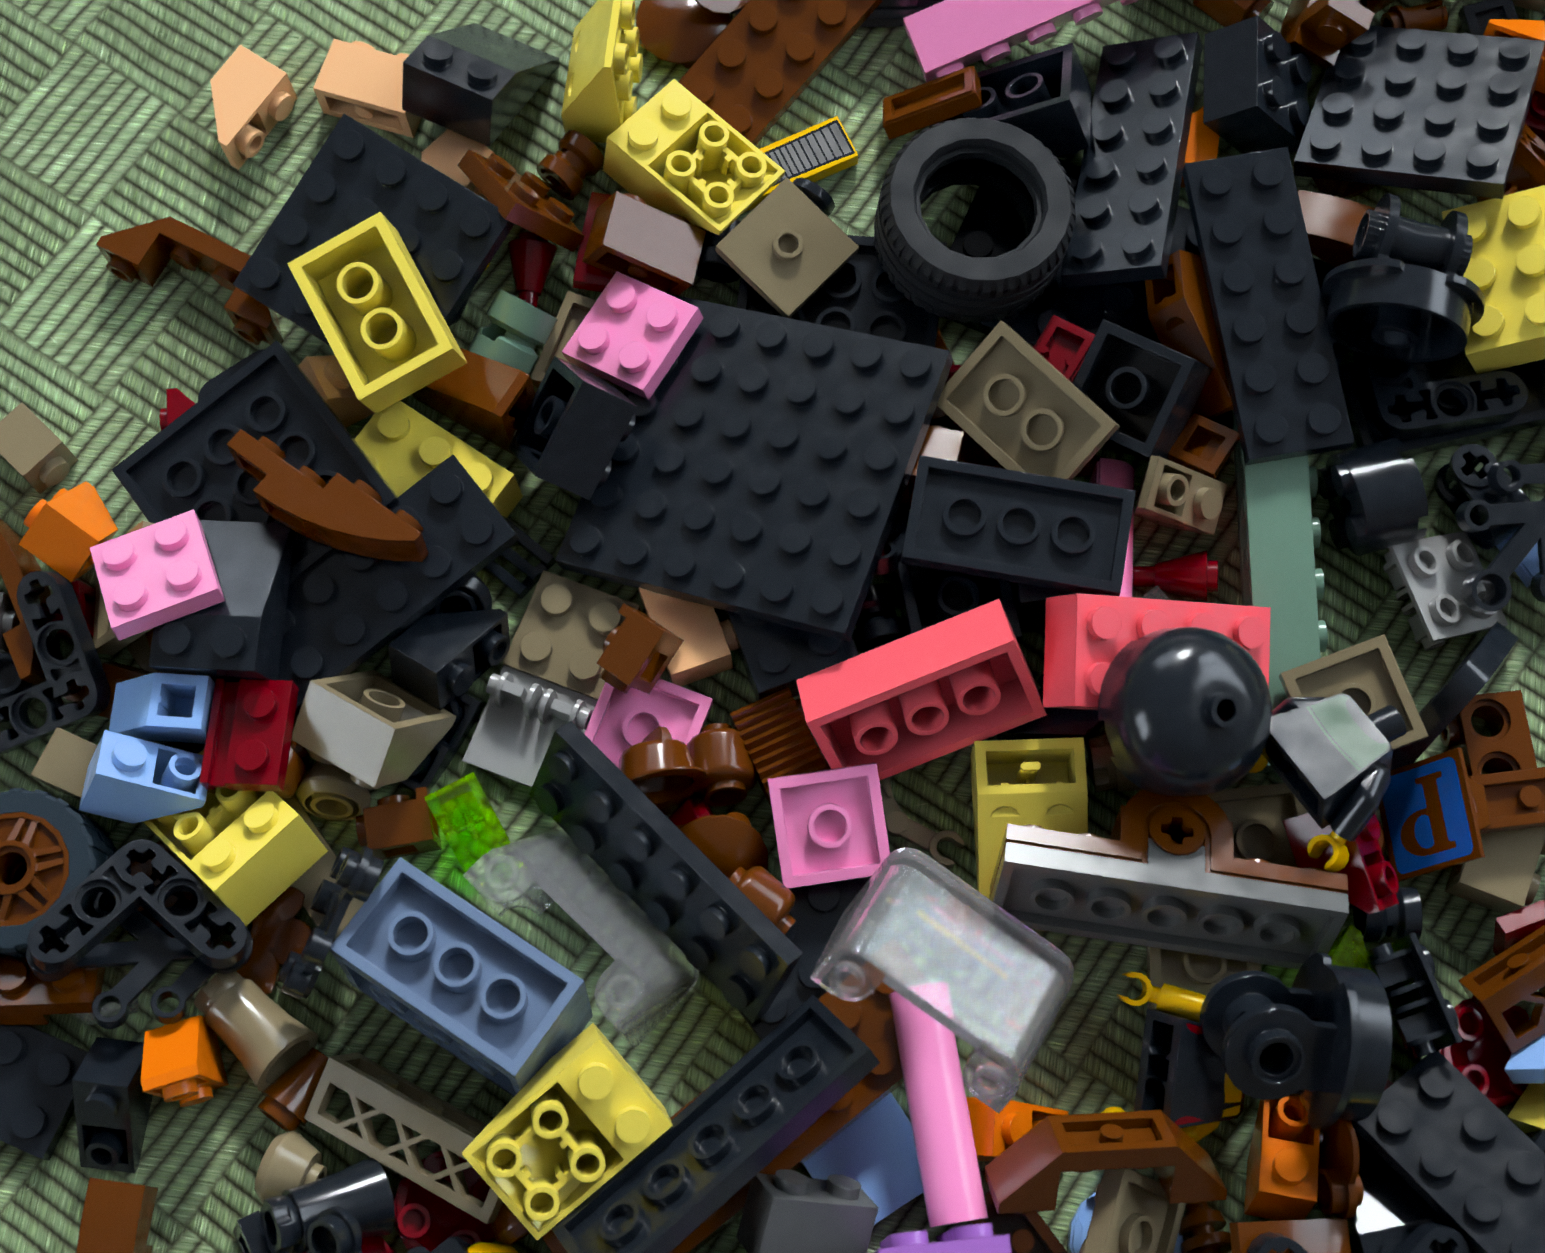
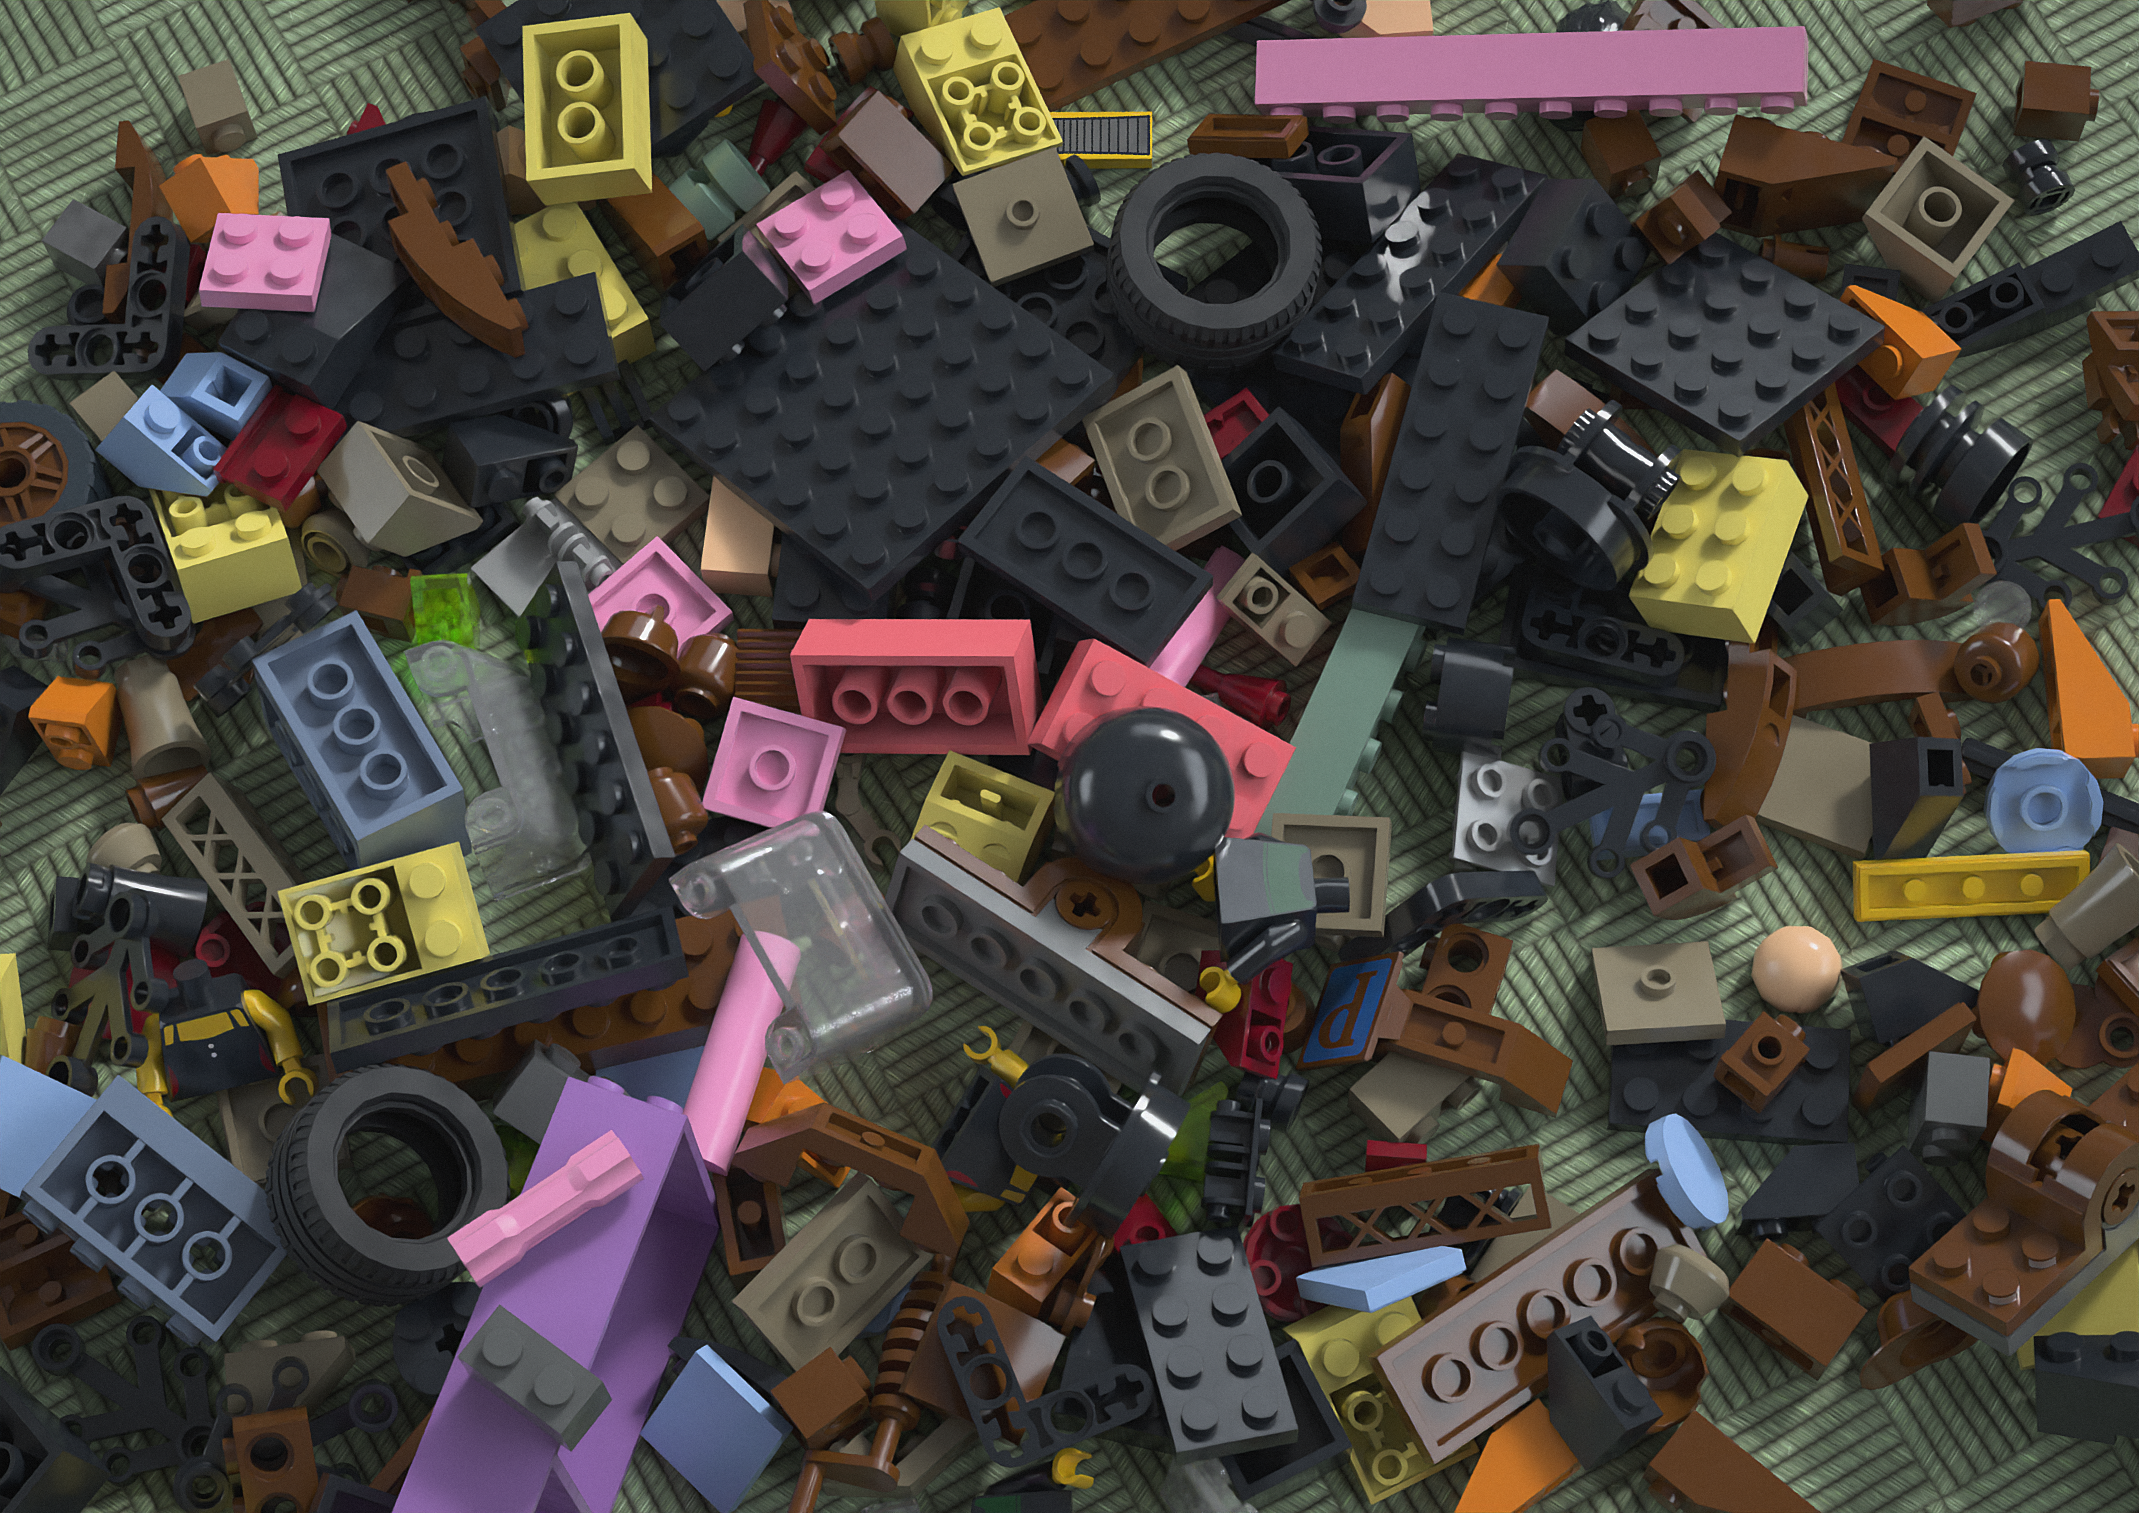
camera: 25 degrees right, 5 degrees down
(637, 652) = (677, 531): reddish brown brick -> none

